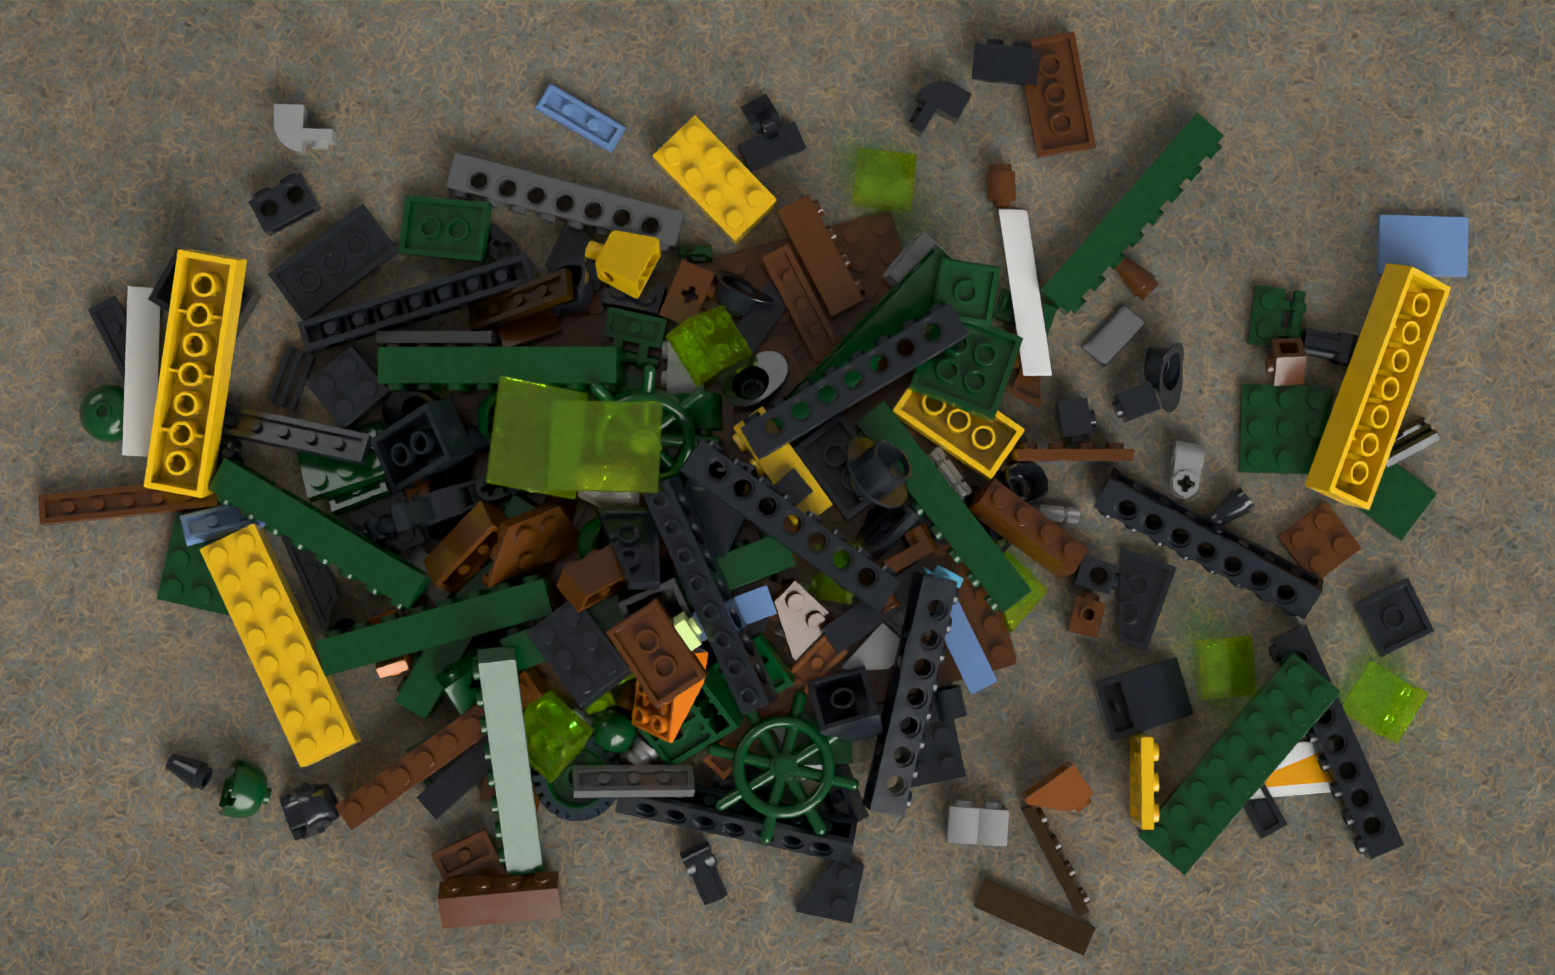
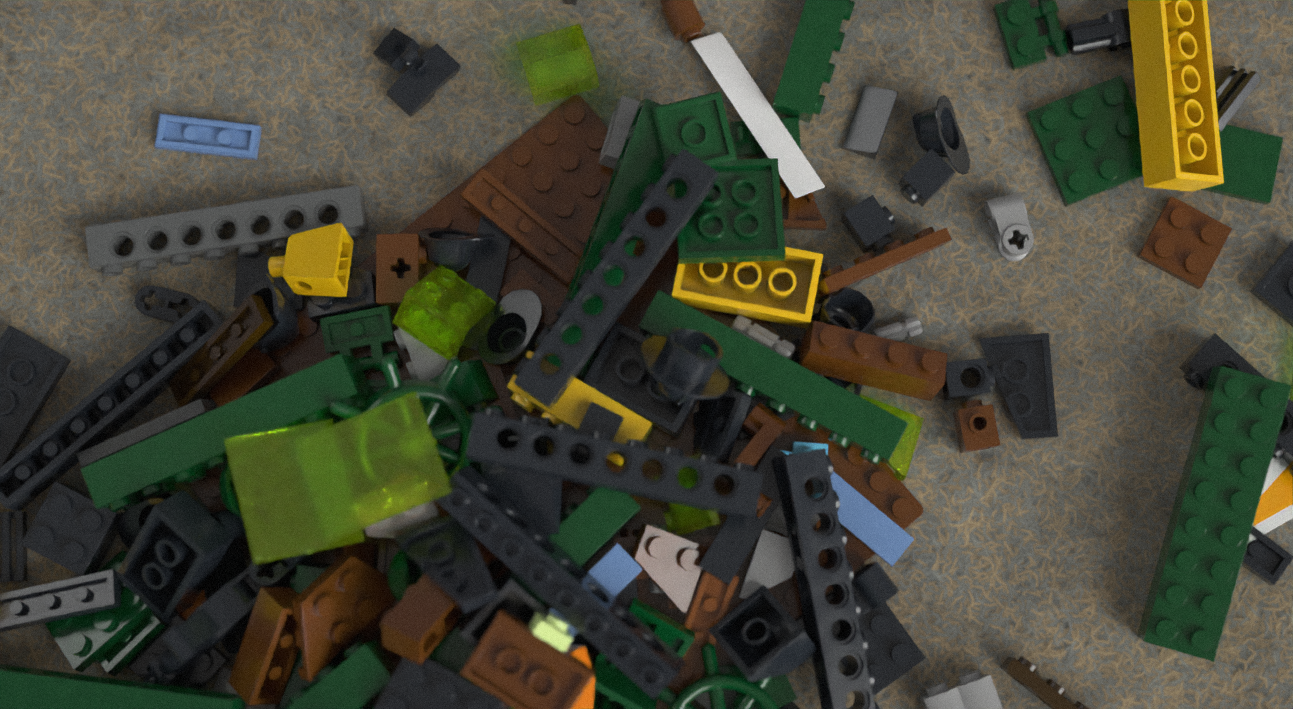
camera: 25 degrees left, 5 degrees down
(445, 228) = (108, 313): dark green plate -> none
(698, 253) = (393, 224): dark green piece -> none
(715, 180) = (377, 138): yellow brick -> none
(820, 256) = (524, 169): reddish brown brick -> none
(1060, 790) = (1036, 627): dark orange slope -> none
(1136, 278) = (868, 51): reddish brown cone -> none
(1142, 698) = (1075, 490): black slope -> none
(1143, 781) = (1122, 577): yellow plate -> none
(1200, 529) = (1193, 312): black brick -> none
(1224, 667) = (1146, 418): clear neon green slope -> none
(1232, 507) = (1077, 244): black cone -> none
(1286, 362) = (1064, 68): reddish brown brick -> none

